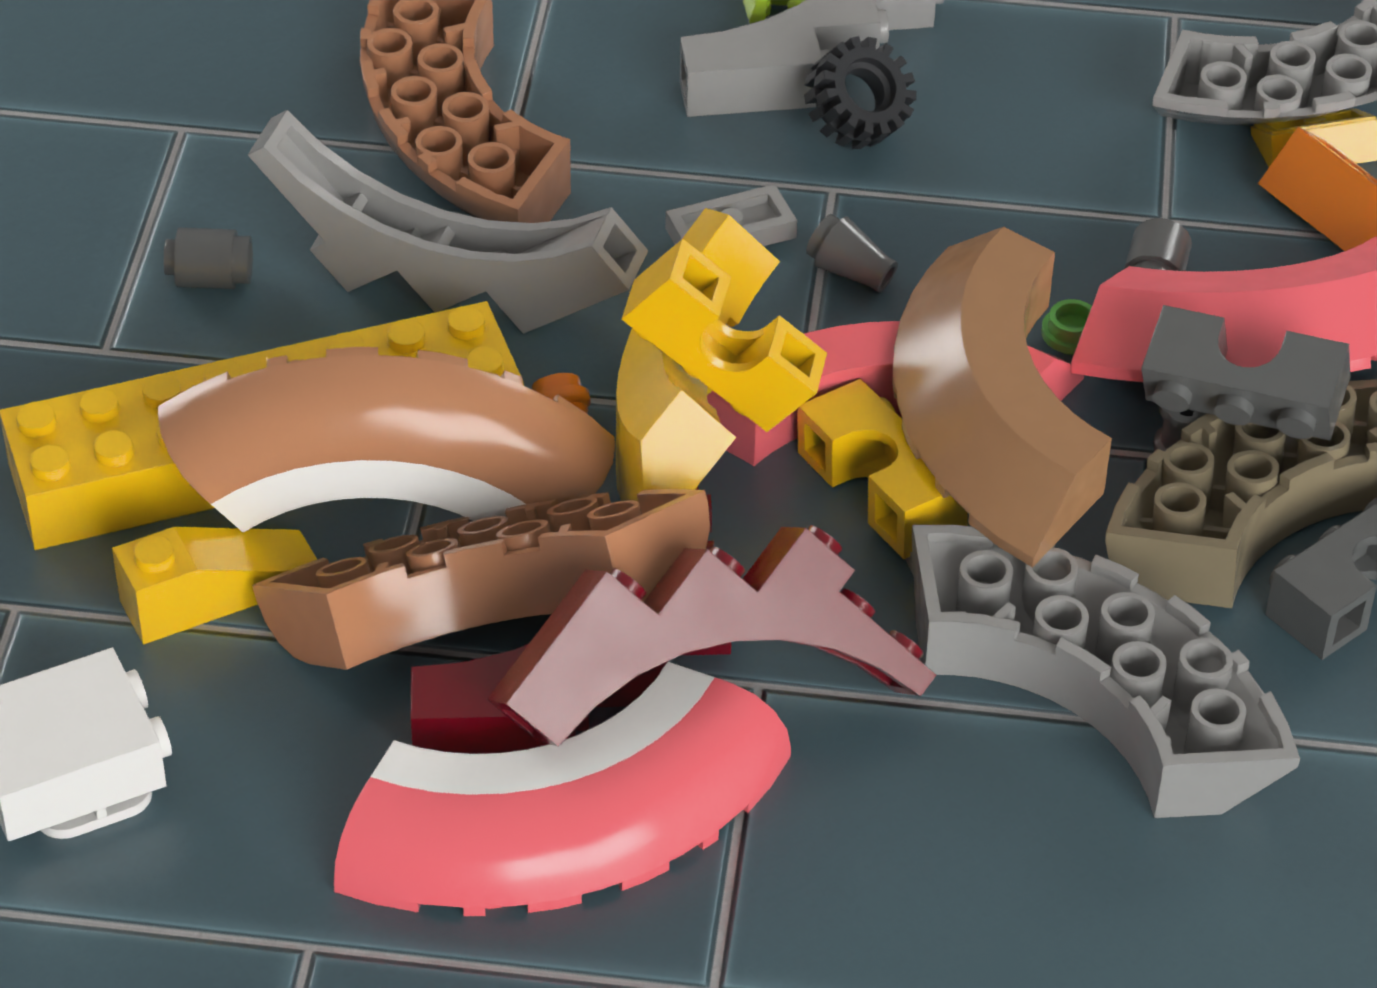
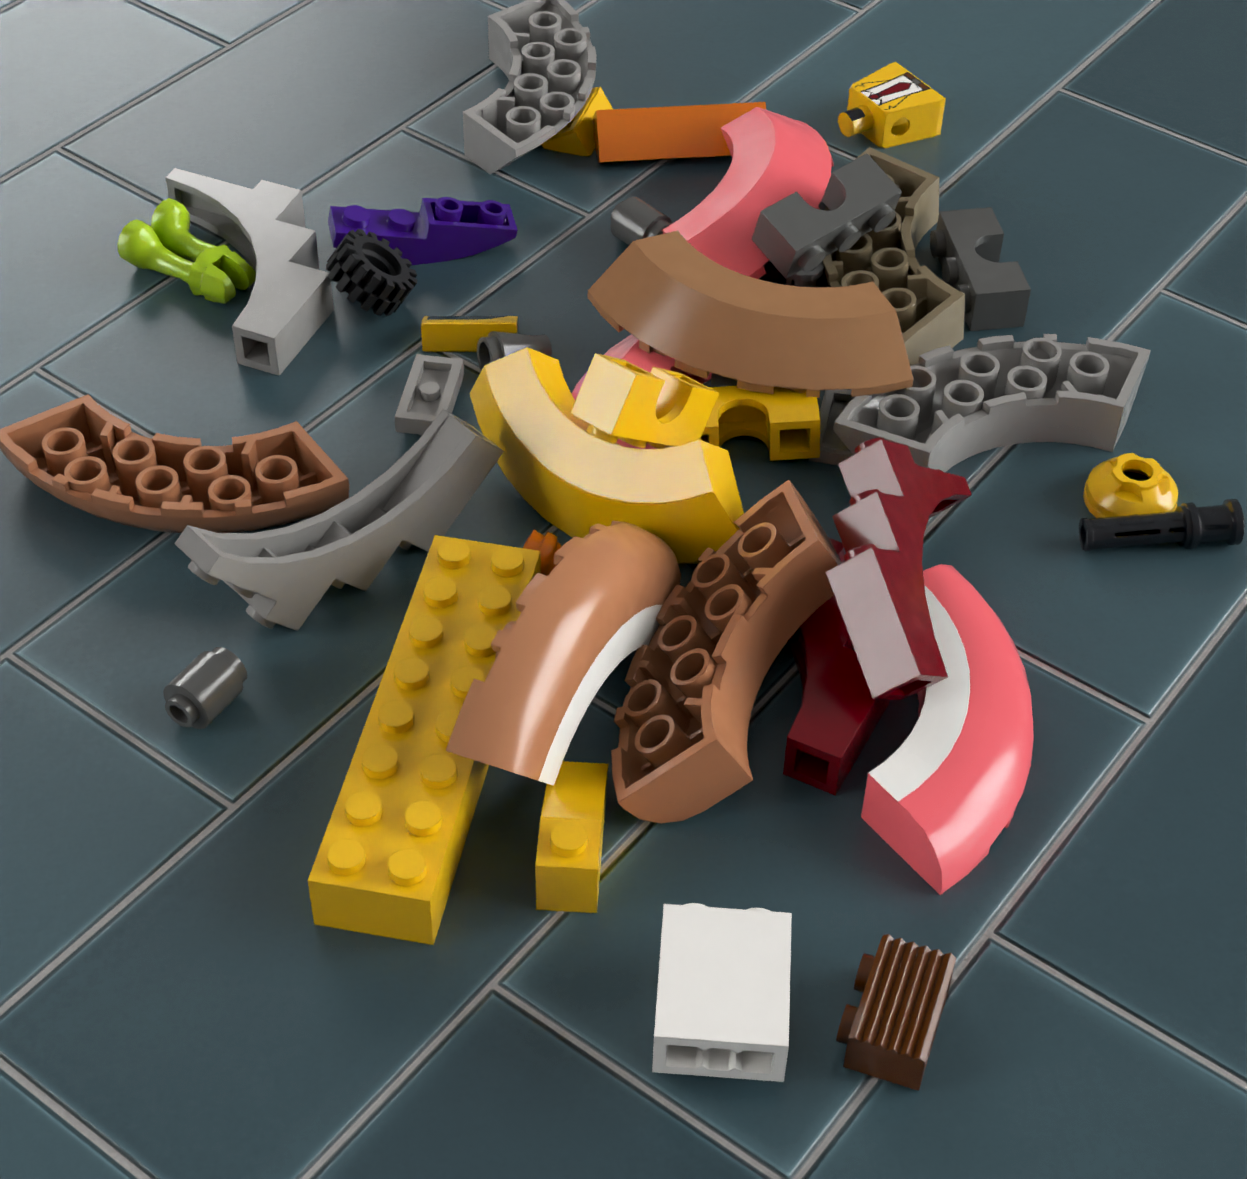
camera: 60 degrees left, 0 degrees up
(136, 895) = (898, 1011): none -> reddish brown brick
(854, 195) = (462, 332): none -> yellow slope
(984, 110) = (438, 233): none -> dark purple slope
(1047, 913) = (1186, 526): none -> black pin
(1077, 872) = (1114, 494): none -> yellow piece

